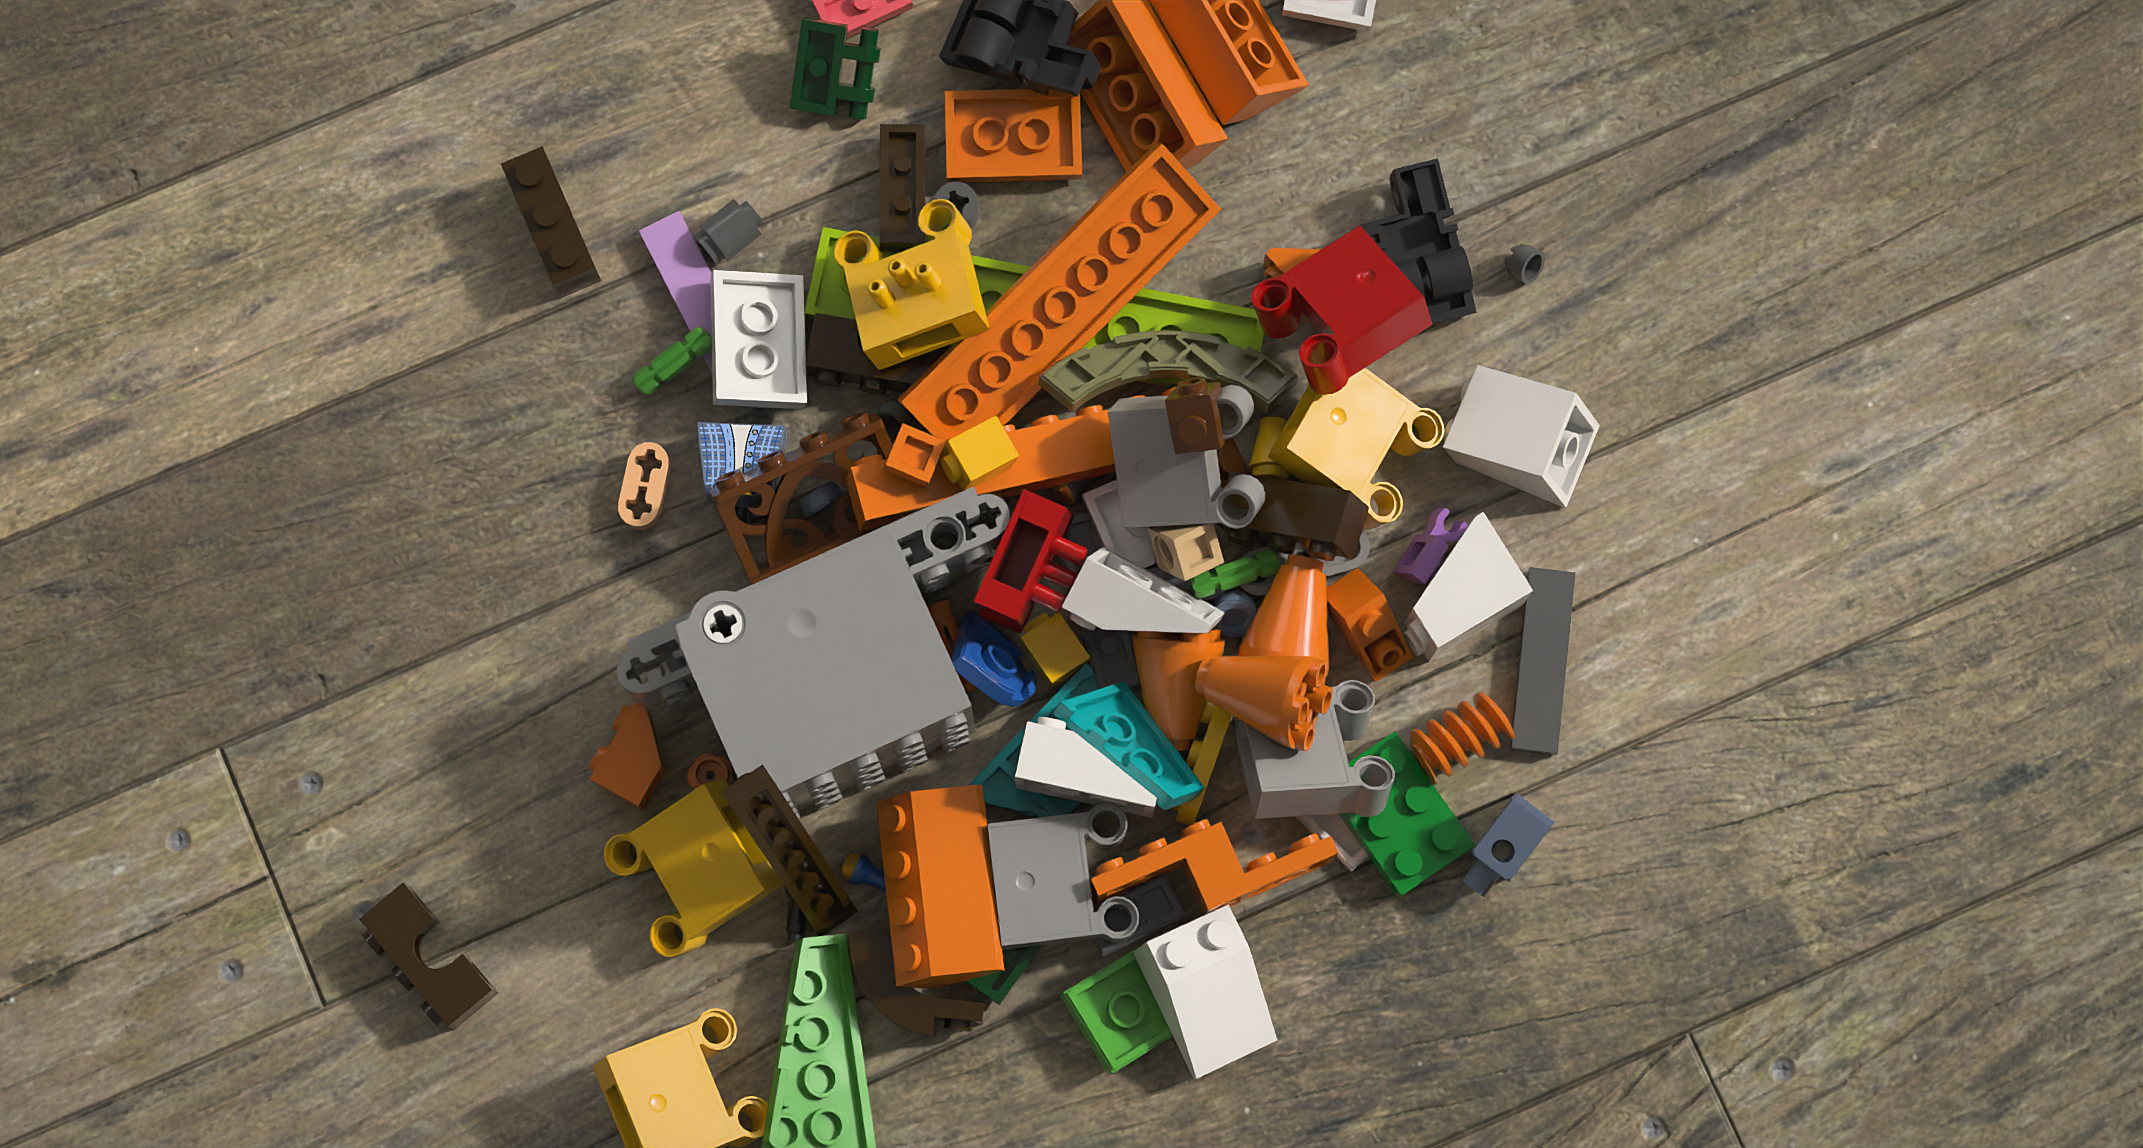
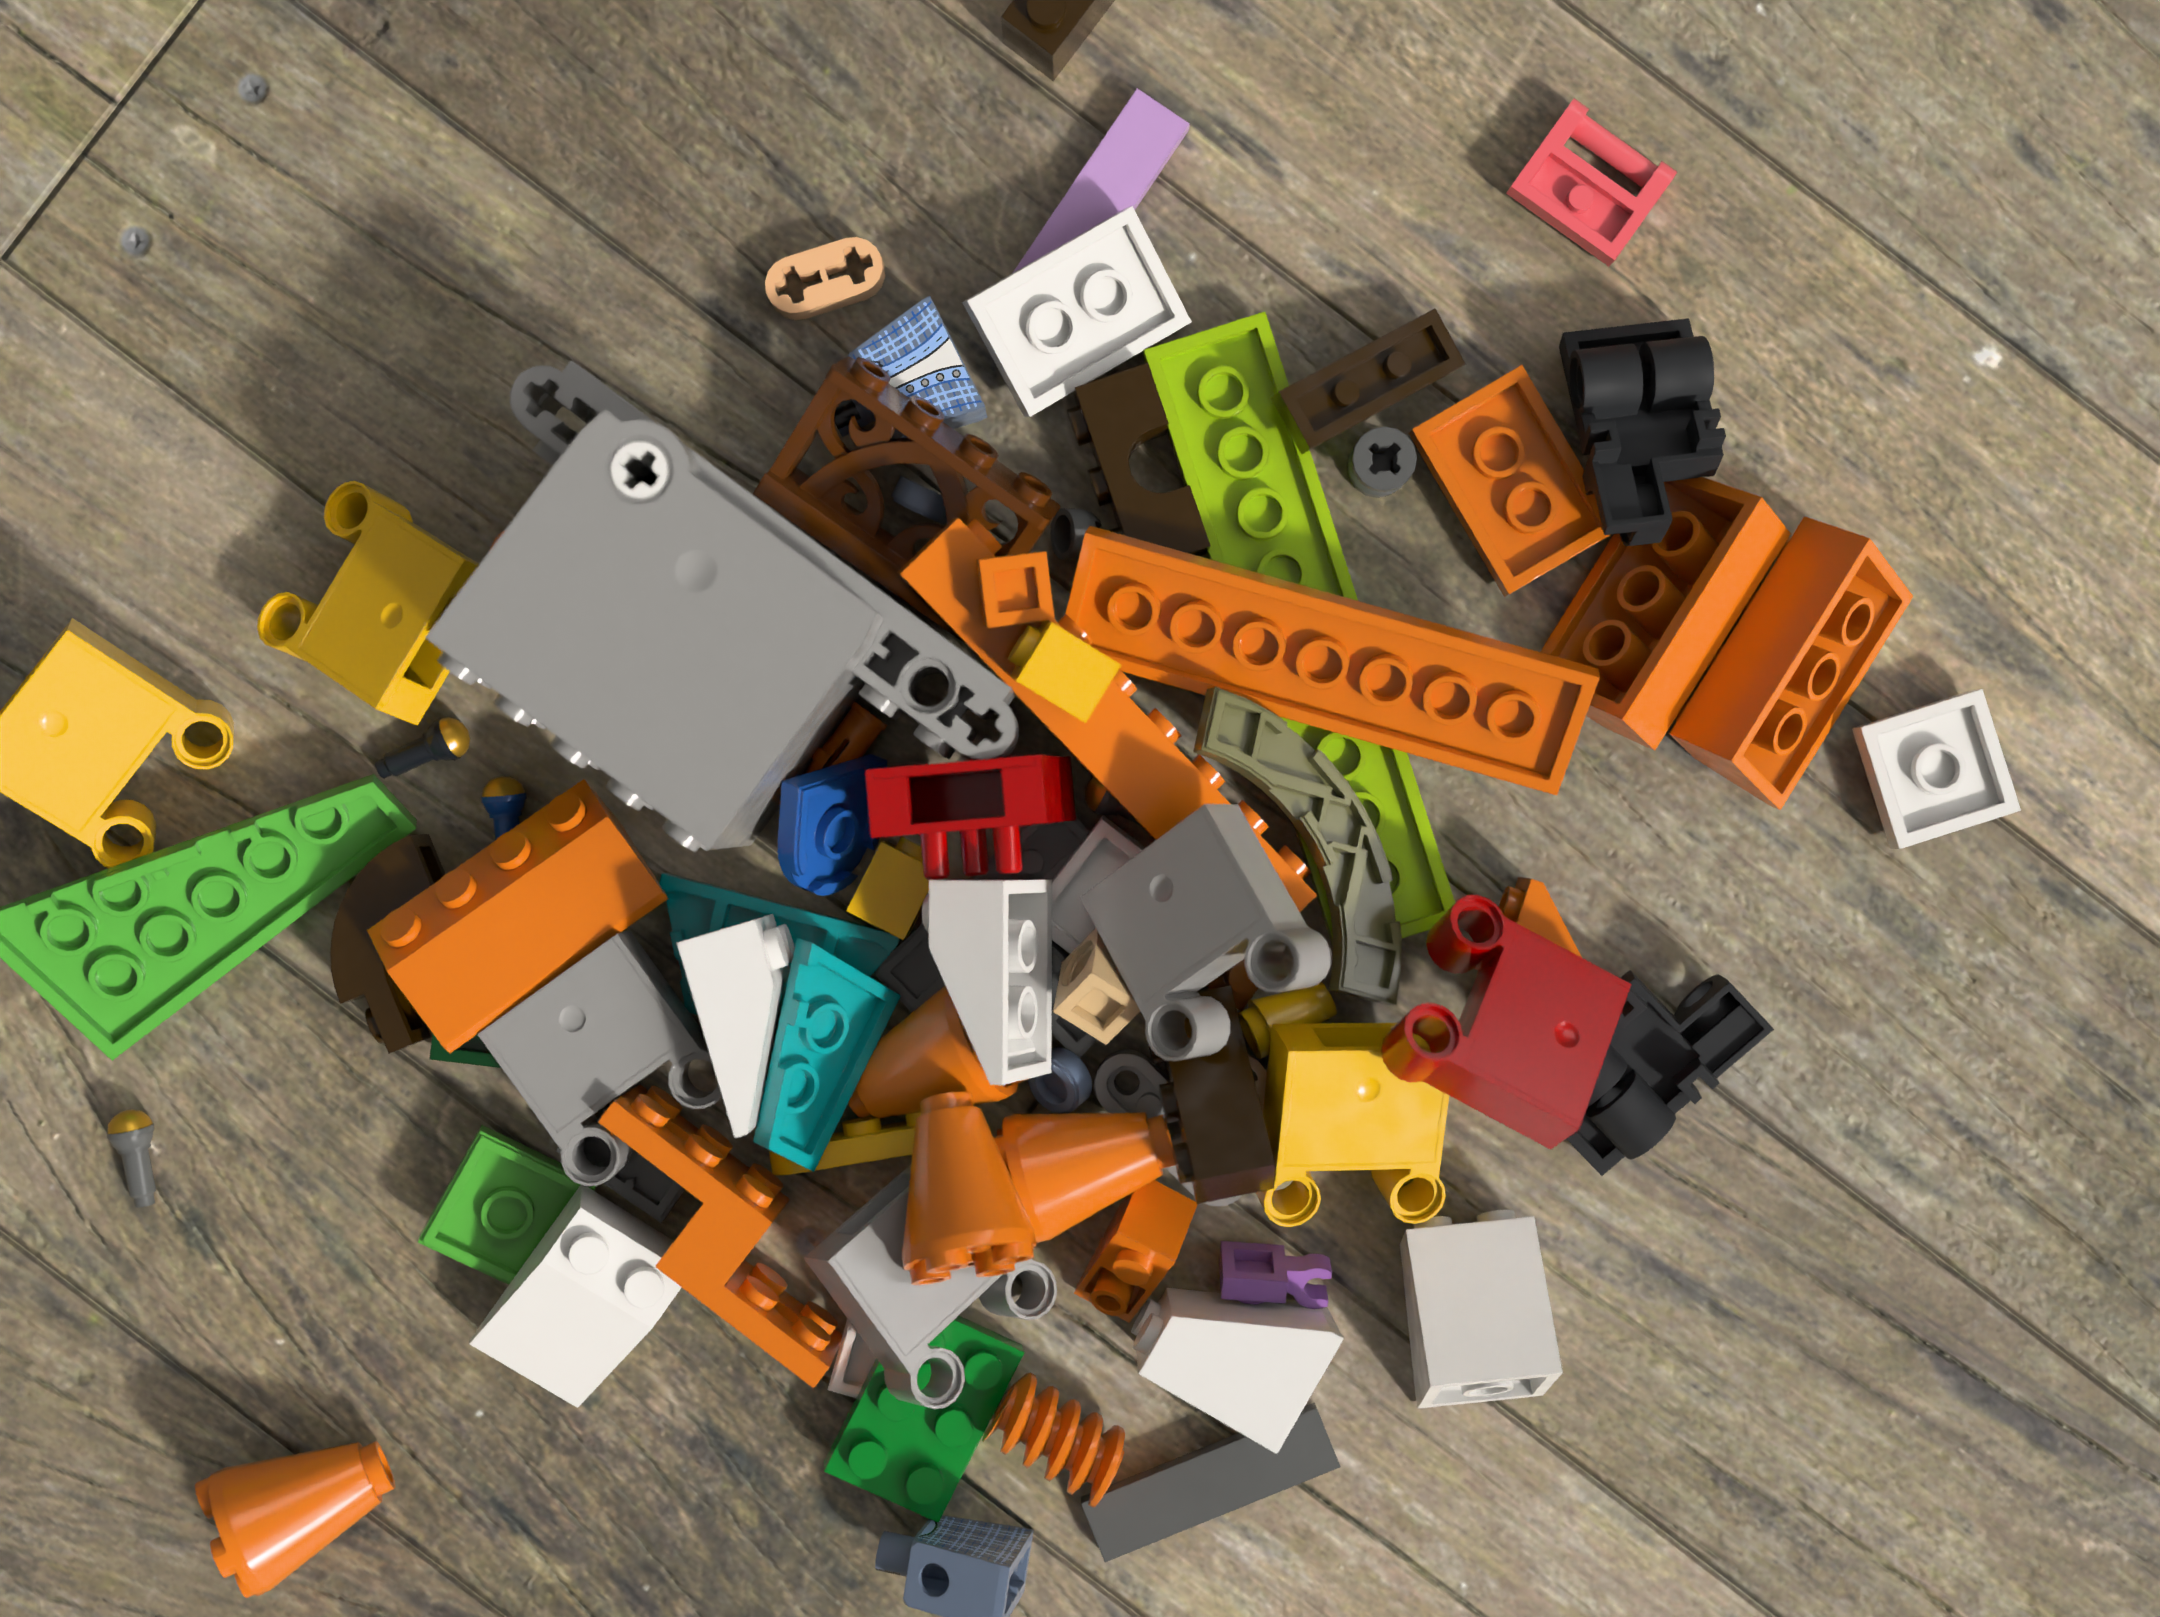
camera: 60 degrees right, 10 degrees up
(398, 928) = (116, 296): dark brown arch -> none
(633, 759) = (473, 455): orange slope -> none
(673, 360) = (995, 223): bright green axle -> none
(728, 231) = (1196, 198): dark grey brick -> none
(789, 850) = (422, 707): dark brown plate -> none
(820, 64) = (1465, 192): dark green plate -> none
(915, 296) = (1230, 476): yellow piece -> none
(1195, 416) = (1256, 922): reddish brown bracket -> none
(1235, 573) = (1108, 1065): bright green axle -> none
(1525, 263) = (1698, 1200): dark grey hinge -> none

